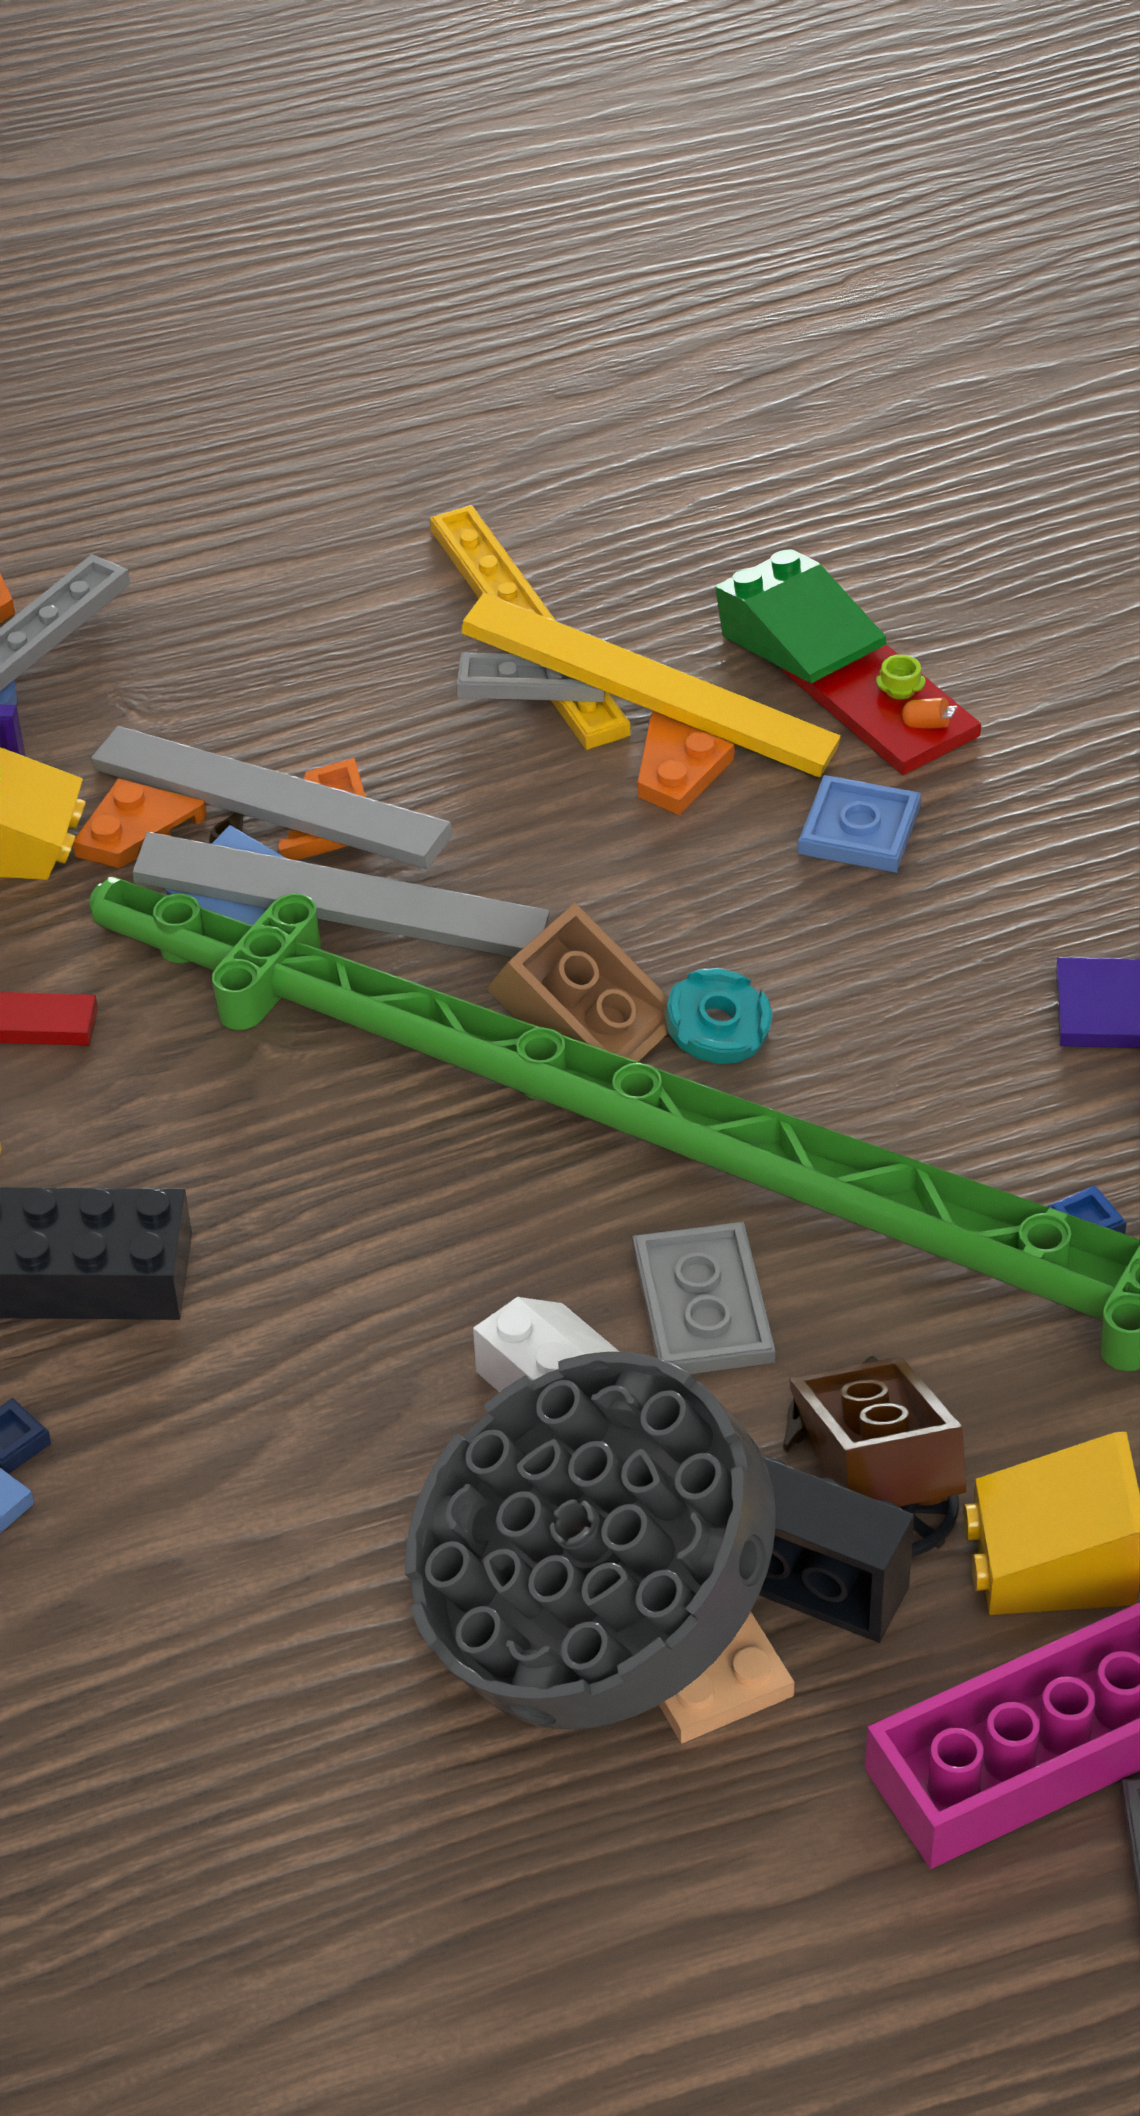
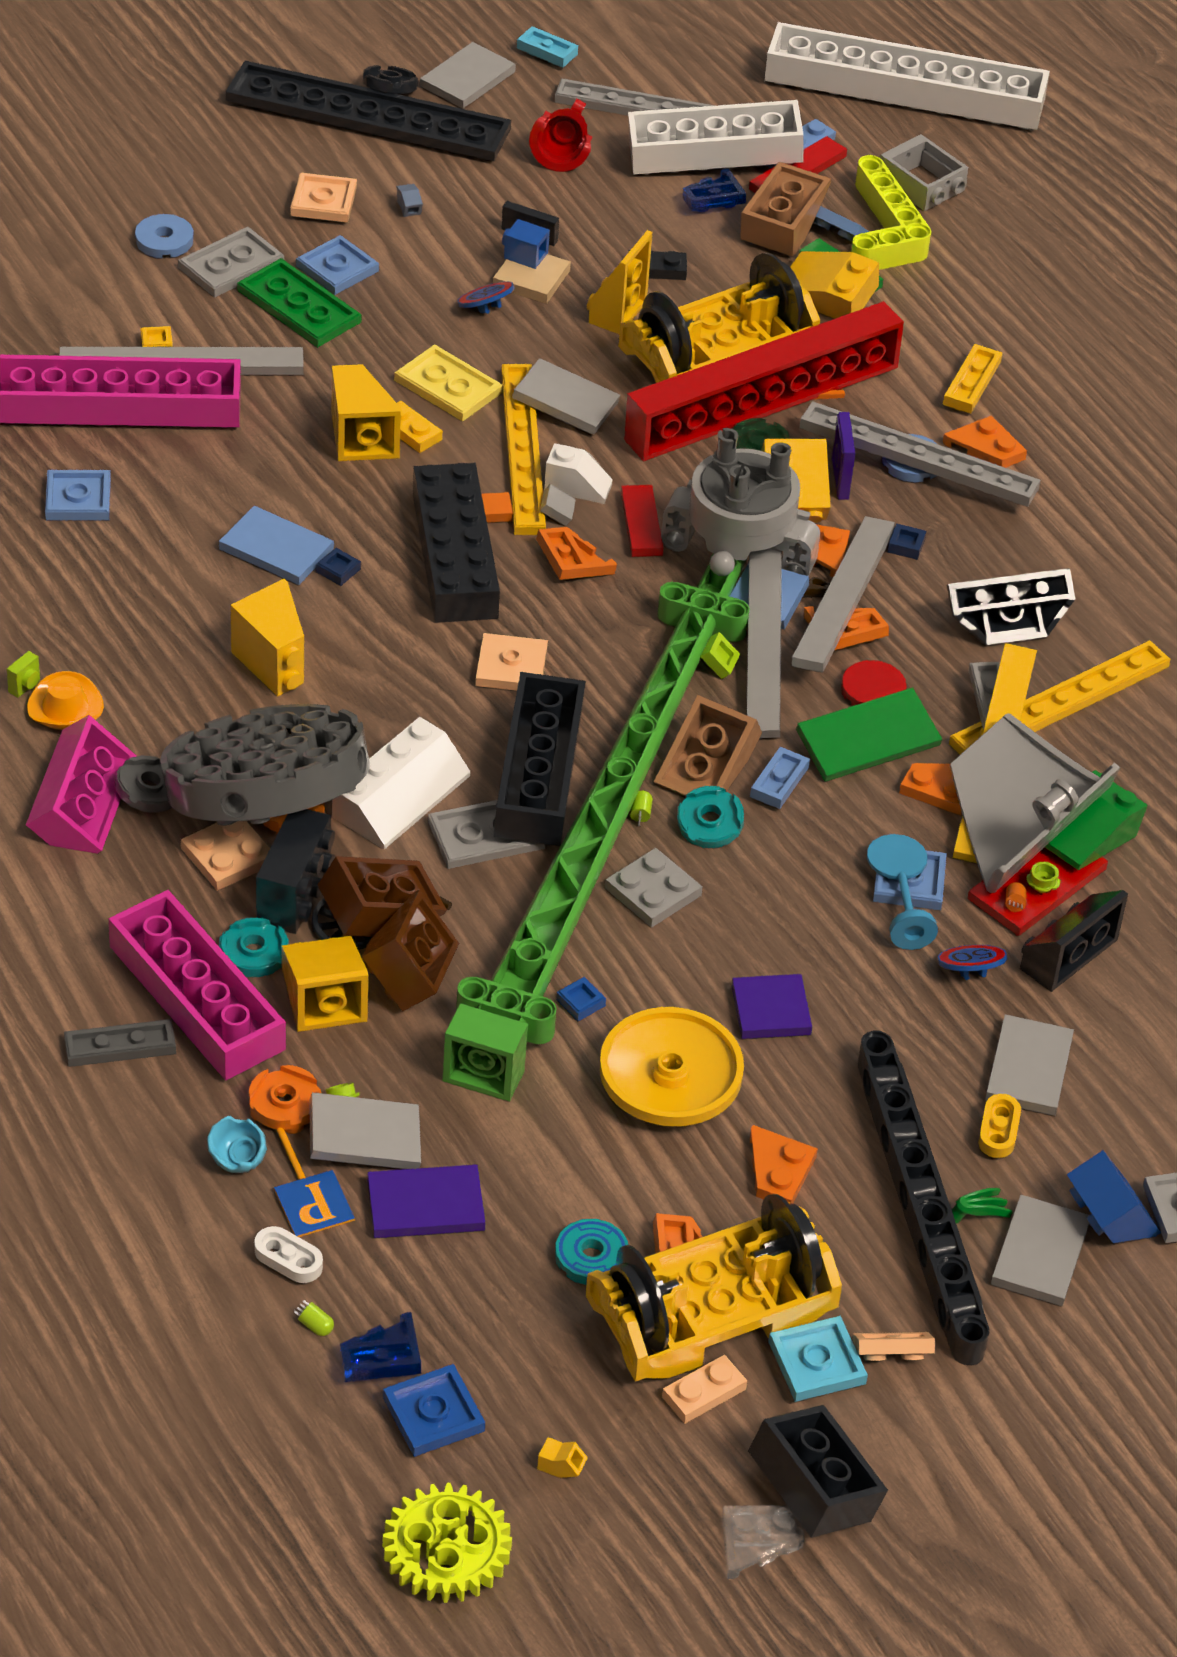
camera: 75 degrees right, 0 degrees up
(77, 1111) = (571, 555): none -> orange wing
(103, 839) = (741, 506): none -> light grey piece
(156, 720) = (907, 541): none -> dark blue tile
(198, 1959) = (23, 674): none -> lime plate
(220, 1523) = (269, 637): none -> yellow slope
(281, 1900) = (64, 699): none -> light orange hat
(314, 1221) = (507, 656): none -> light nougat plate
(340, 622) = (1012, 606): none -> black wedge
(369, 954) = (720, 655): none -> lime plate
(467, 797) = (870, 681): none -> red tile
(529, 1884) = (79, 788): none -> dark pink slope
(530, 1796) = (135, 792): none -> dark grey tile
(571, 819) = (868, 734): none -> green tile
(584, 1188) = (539, 759): none -> black brick
(647, 926) = (779, 777): none -> medium blue plate
(794, 650) = (1019, 796): none -> light grey panel
(844, 821) = (903, 859): none -> dark azure piece
(857, 1098) = (653, 887): none -> light grey plate
(937, 1615) = (254, 931): none -> teal tile
(1021, 660) = (1074, 939): none -> black slope
(1027, 1403) = (411, 952): none -> reddish brown slope
(1043, 772) = (972, 958): none -> blue piece

